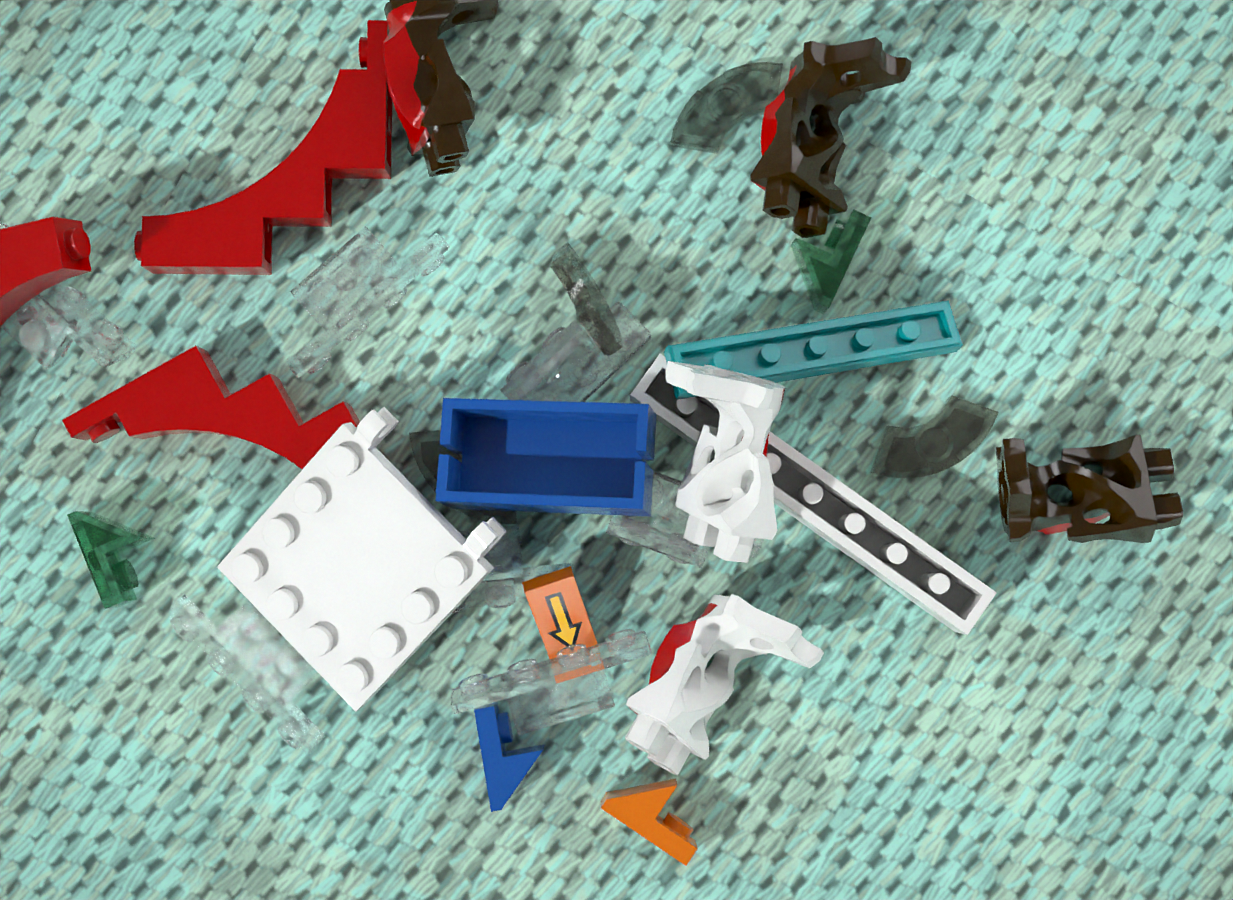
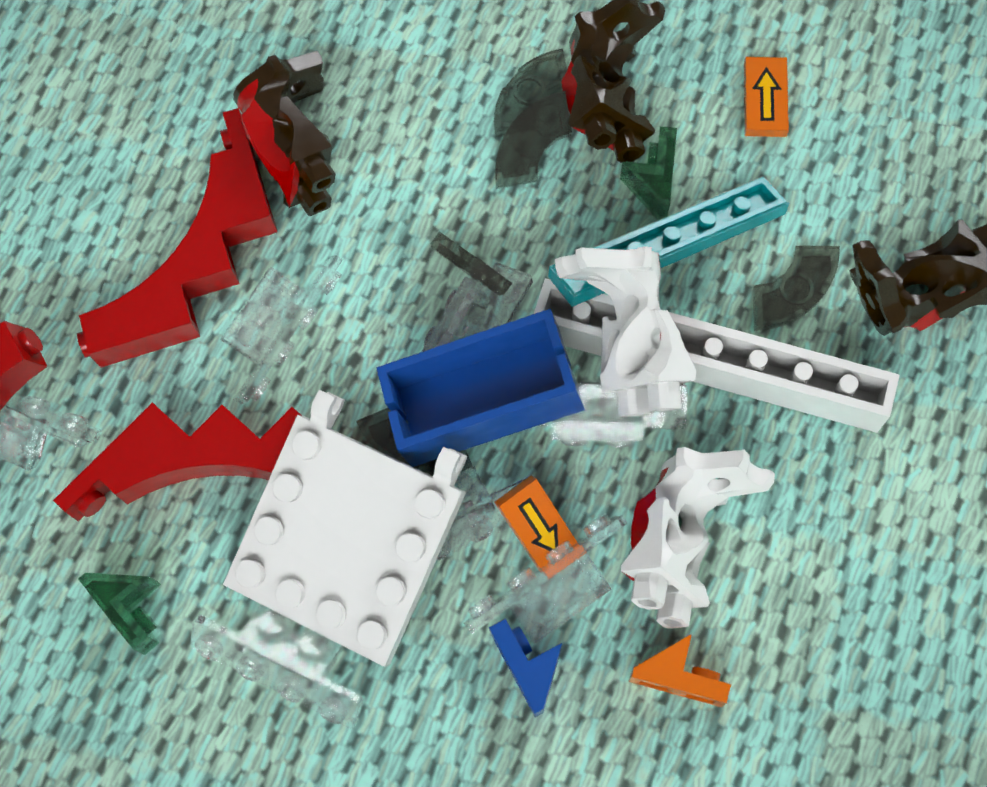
camera: 10 degrees left, 15 degrees down
(703, 167) = (529, 138): none -> clear smoke tile
(990, 203) = (766, 96): none -> orange tile

